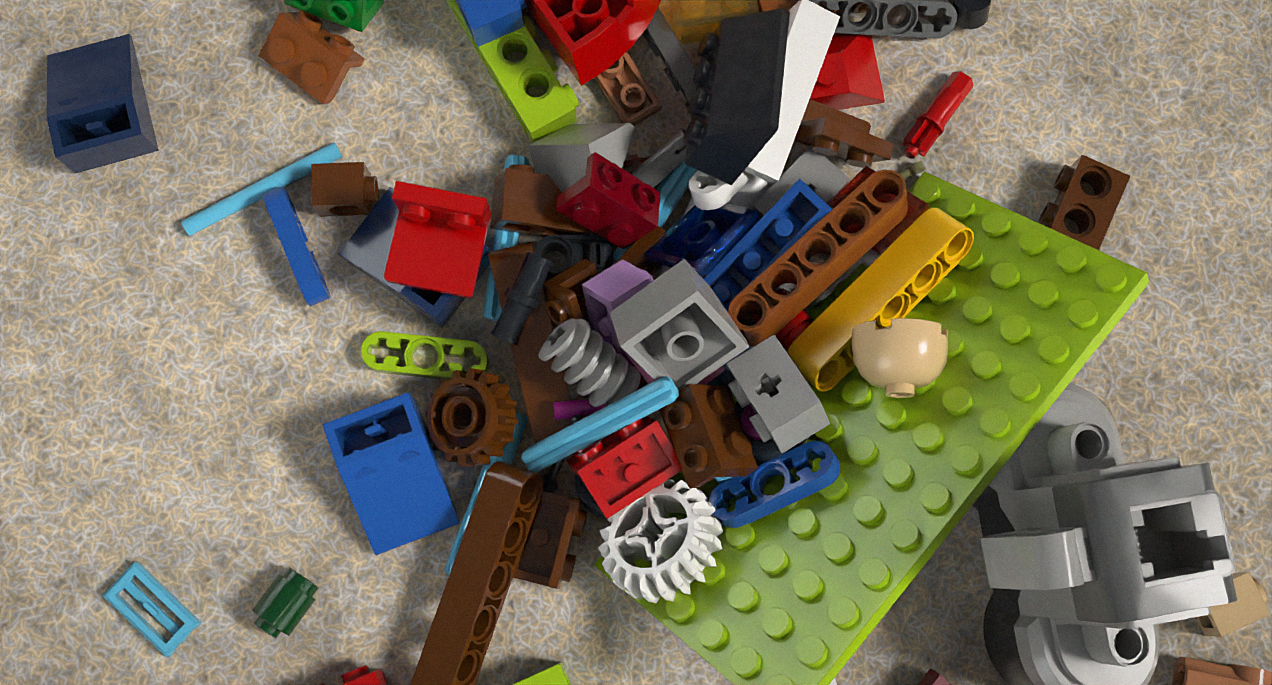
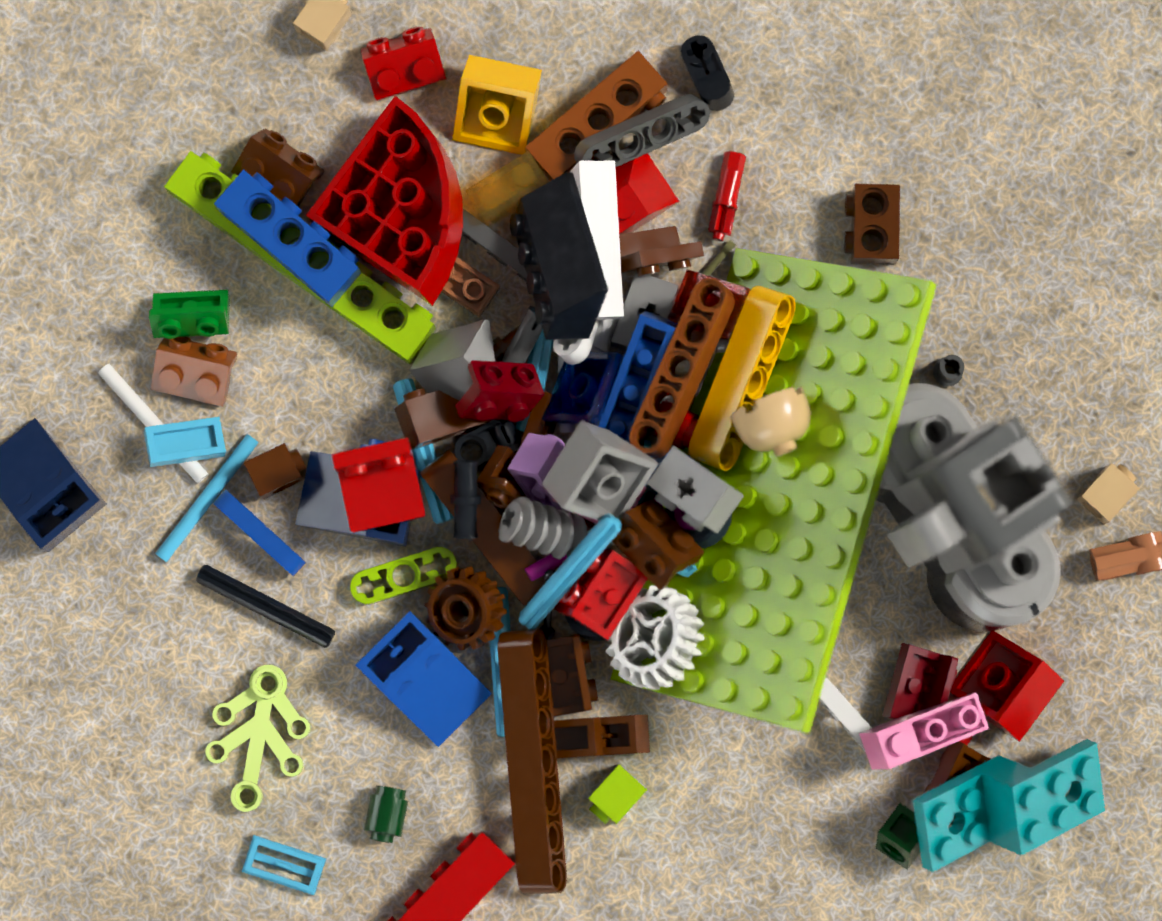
camera: 20 degrees left, 5 degrees up
(195, 453) = (259, 731): none -> yellowish green plant
(245, 92) = (144, 413): none -> white piece
(264, 120) = (184, 441): none -> medium azure tile
(267, 325) = (265, 606): none -> black axle
(556, 623) = (602, 736): none -> reddish brown slope
(792, 491) = (737, 558): blue beam -> none
(1107, 390) = (945, 378): none -> dark grey pin

